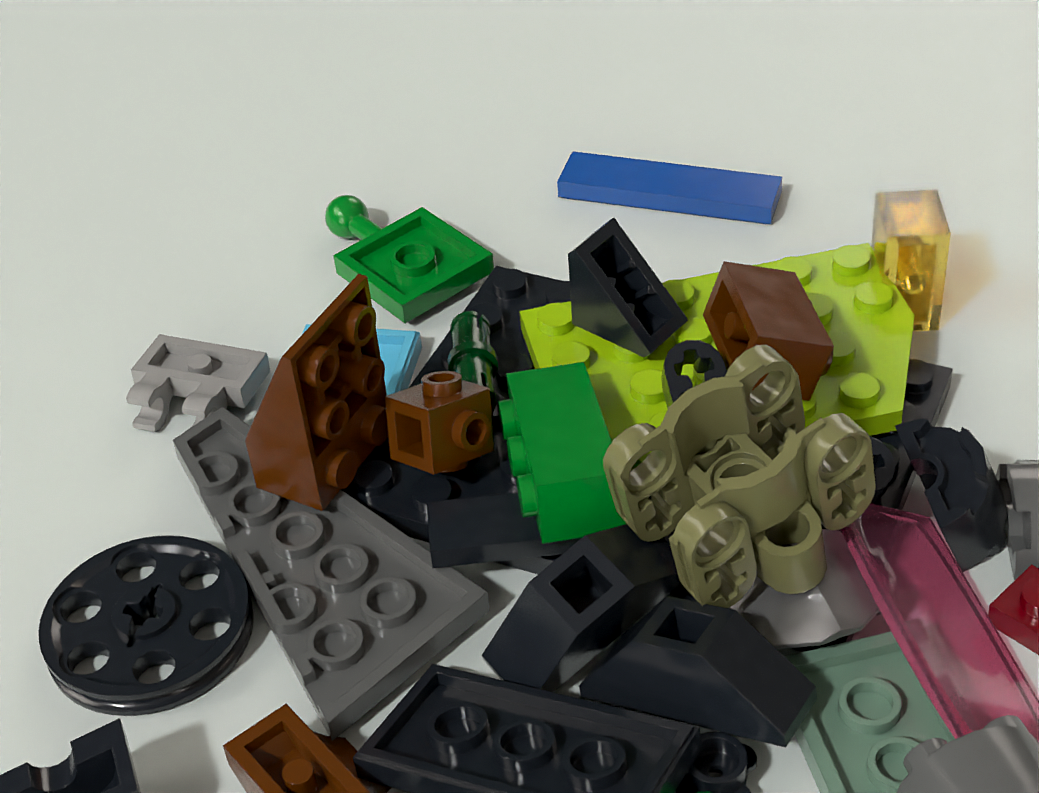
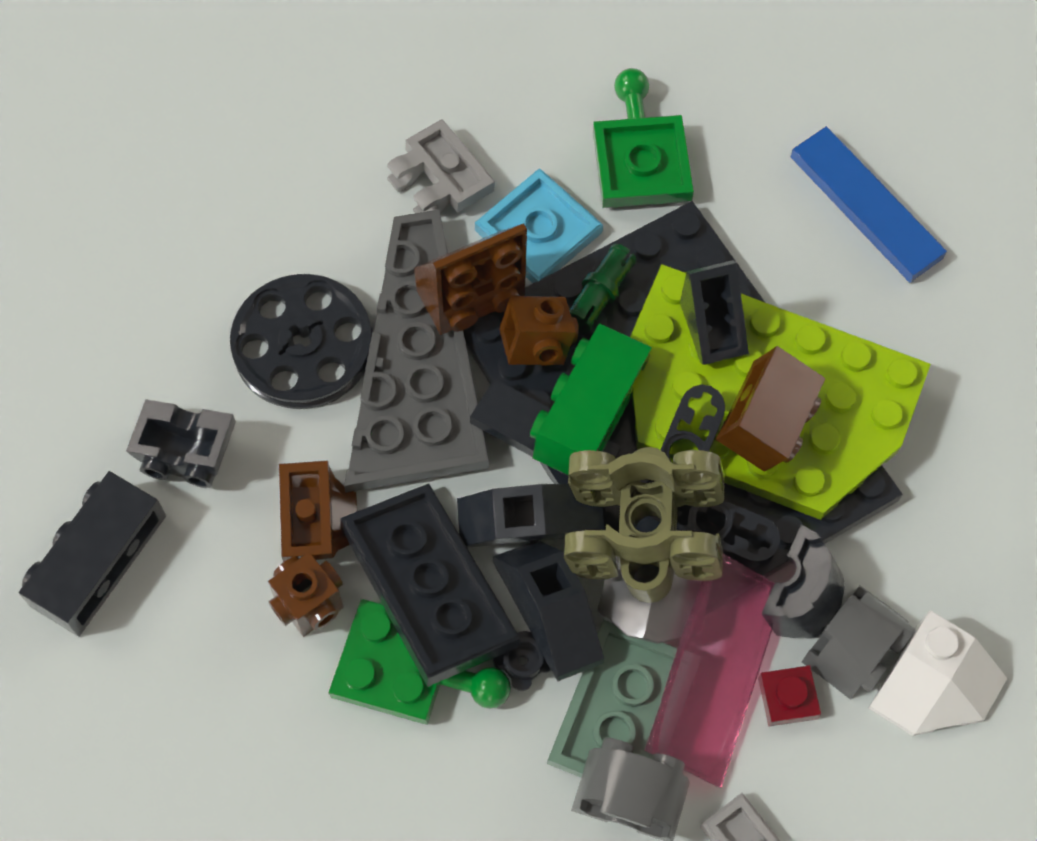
camera: 30 degrees right, 25 degrees up
(913, 250) = (943, 395): clear yellow brick -> none

